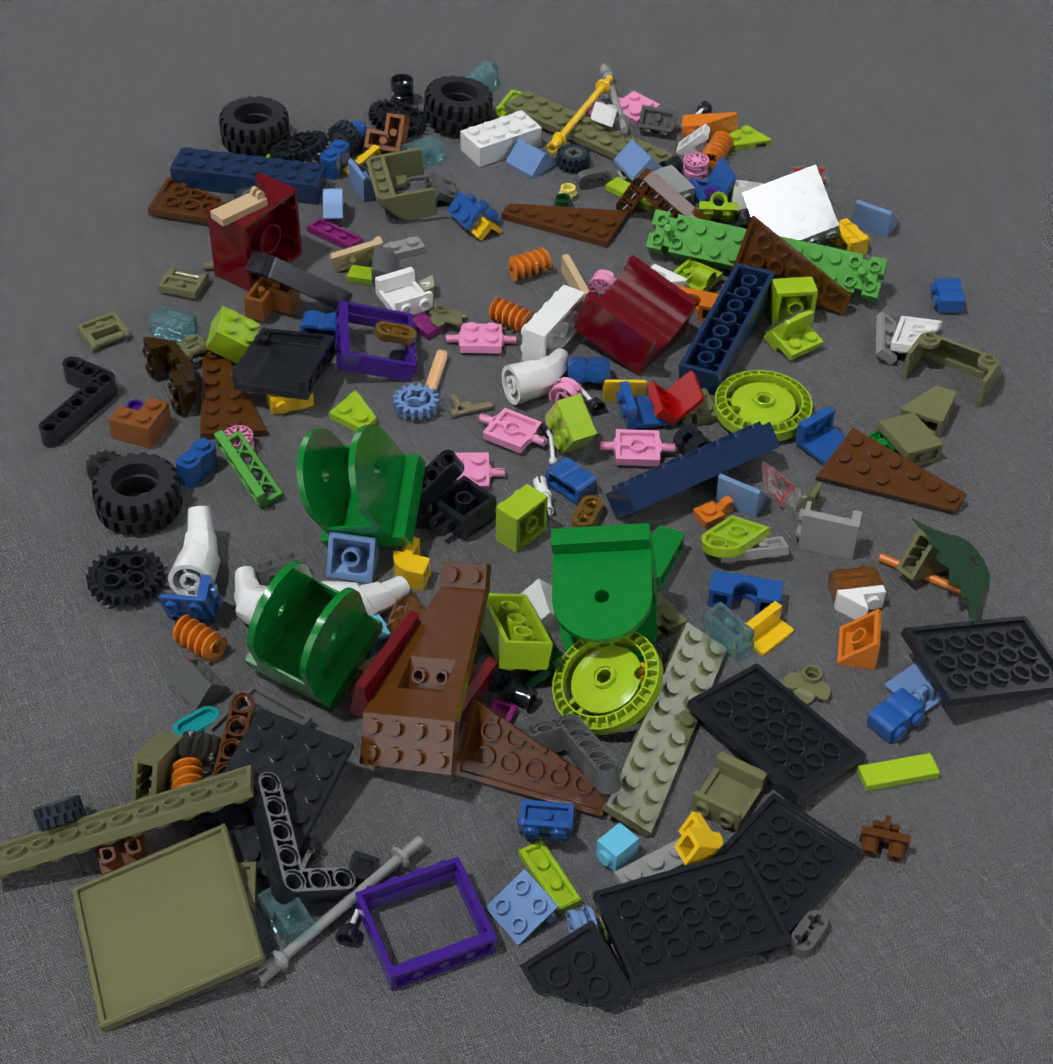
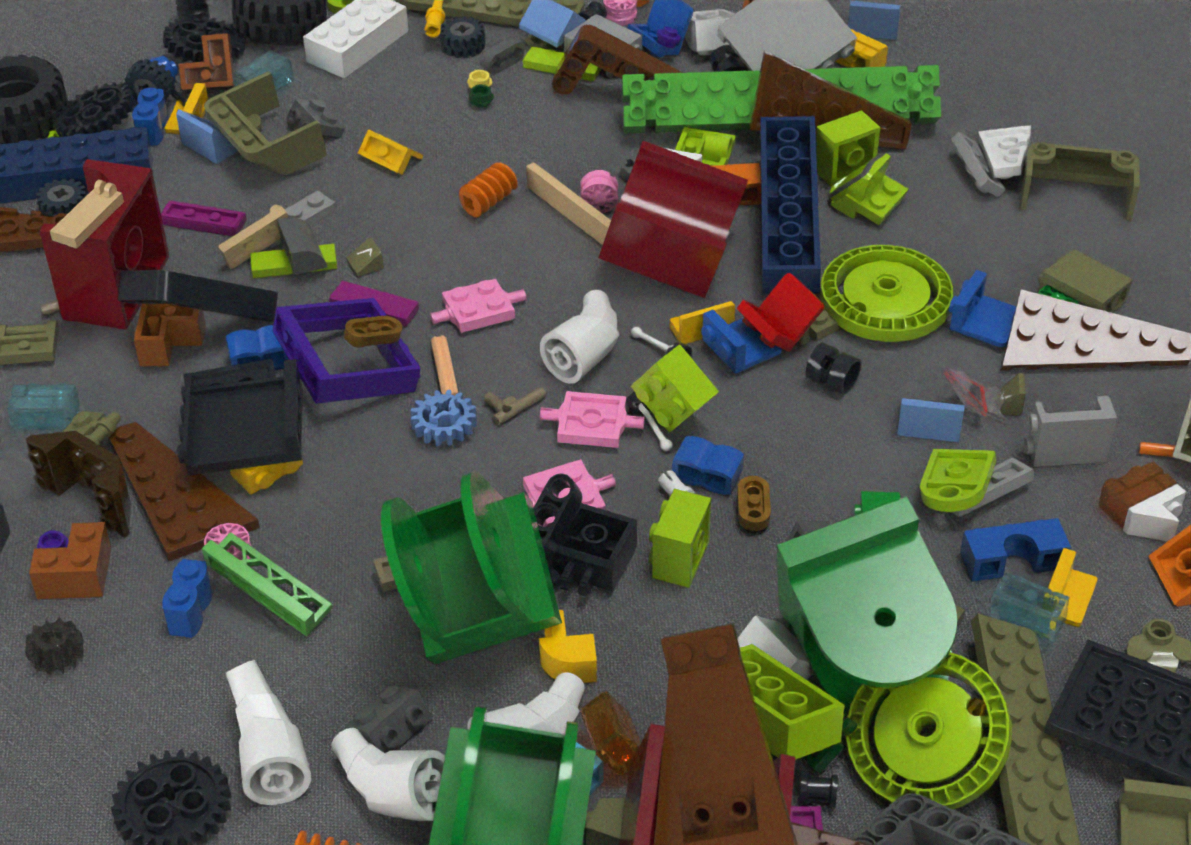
camera: 20 degrees left, 0 degrees up
(141, 512) = (133, 704): black tyre -> none
(201, 607) = (313, 816): blue bracket -> none
(231, 334) = (144, 398): lime brick -> none
(333, 203) = (182, 176): light blue brick -> none
(352, 557) = (483, 667): medium blue slope -> none
(353, 412) = (366, 459): lime wing -> none
(402, 293) = (344, 275): white panel -> none
(442, 315) = (413, 289): olive plate -> none
(468, 210) = (372, 138): blue bracket -> none
(509, 314) = (504, 265): orange piece -> none
(529, 159) = (407, 52): medium blue slope -> none
(552, 324) = (569, 262): white brick -> none
(564, 388) = (635, 349): bright pink wheel -> none
(581, 224) = (521, 118): reddish brown wing -> none
(593, 369) = (650, 306): blue brick -> none
(637, 447) = (764, 394): bright pink plate -> none
(691, 468) = (858, 405): dark blue brick -> none
(711, 513) = (907, 455): orange plate -> none
(725, 212) = (691, 59): lime plate -> none
(932, 408) = (1088, 234): olive slope -> none
(947, 295) = (1015, 91): blue brick -> none

